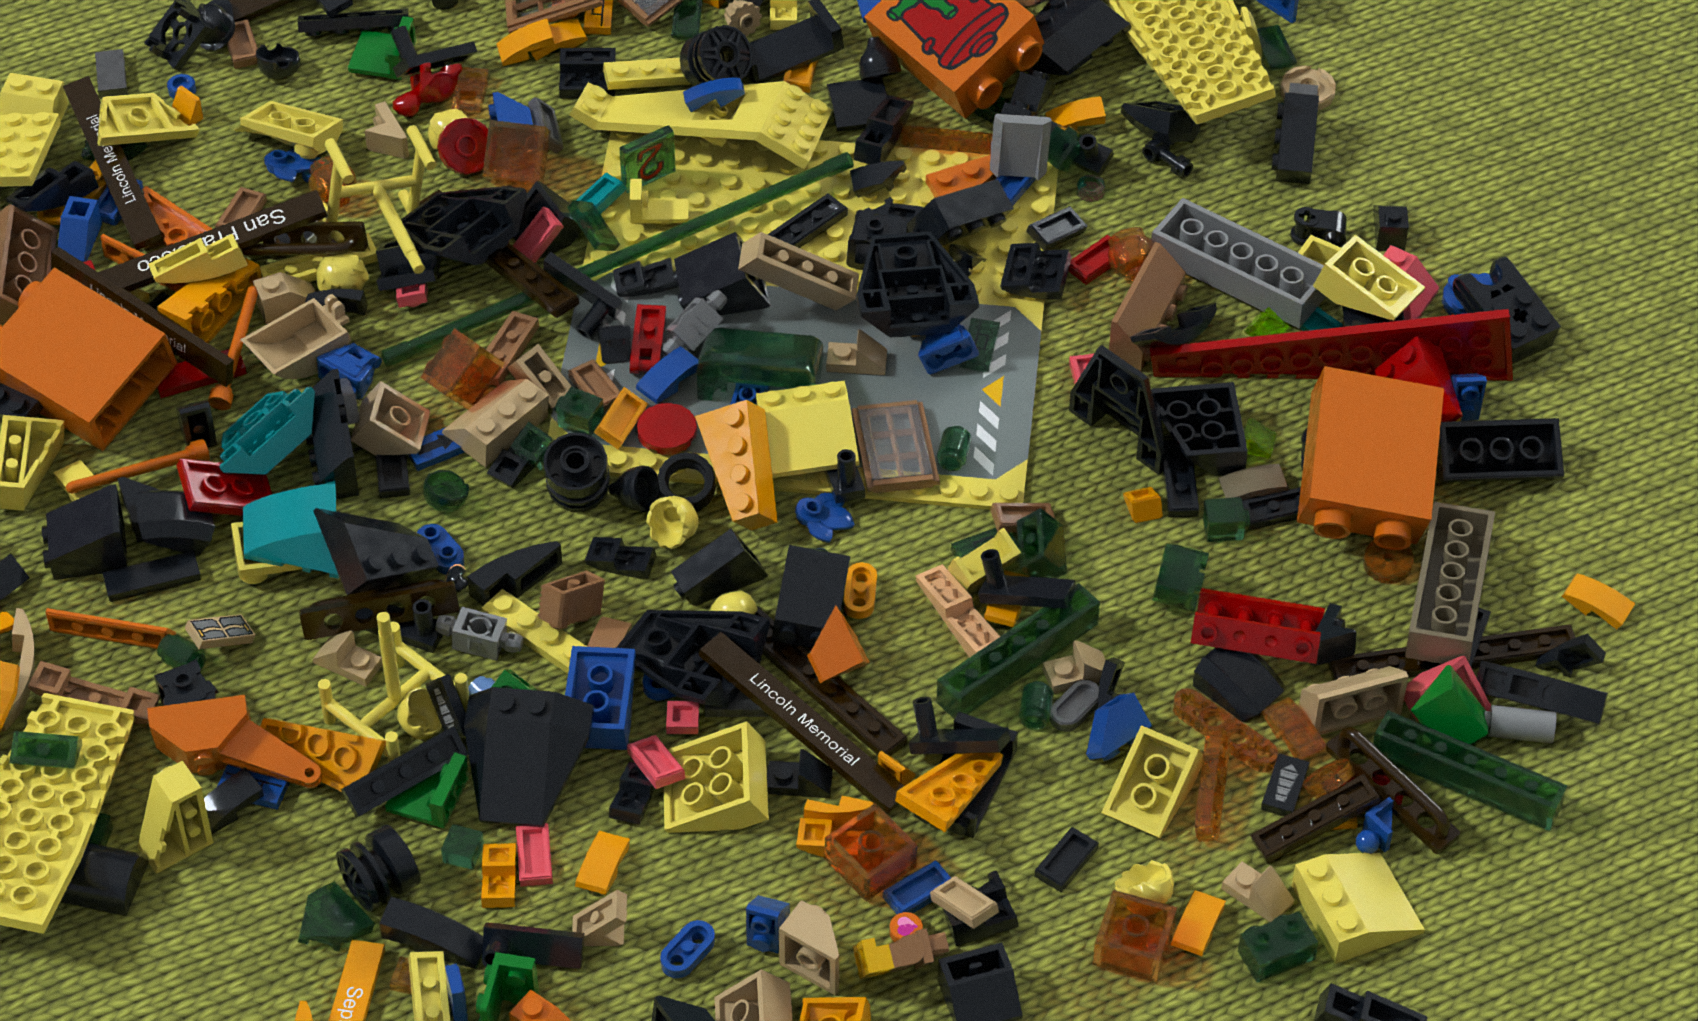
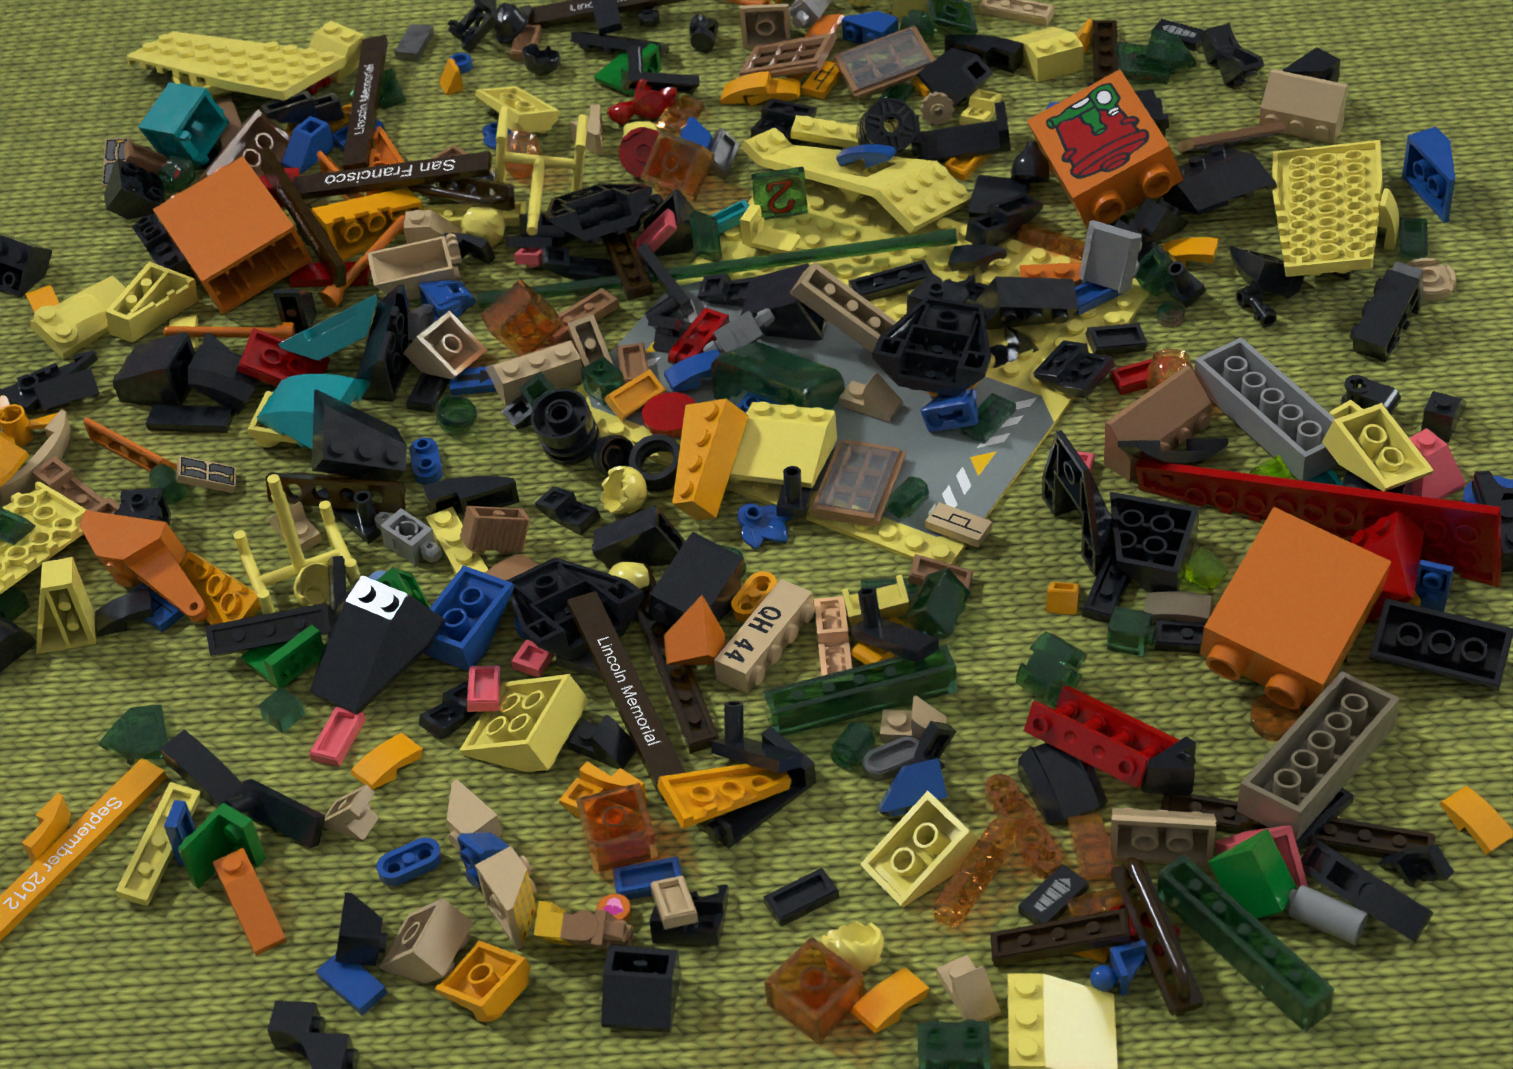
camera: 30 degrees right, 5 degrees down
(140, 119) = (404, 76): light yellow wing -> none
(199, 262) = (368, 184): light yellow slope -> none
(382, 866) = (184, 704): black wheel -> none
(456, 575) = (415, 485): black arm -> none
(474, 294) = (575, 268): none -> black slope
(498, 875) = (297, 743): light orange slope -> none
(722, 890) = (469, 814): none -> tan slope
(894, 626) = (764, 636): none -> tan brick
(895, 768) = (689, 757): light orange slope -> none
(1013, 461) = (958, 524): none -> tan tile

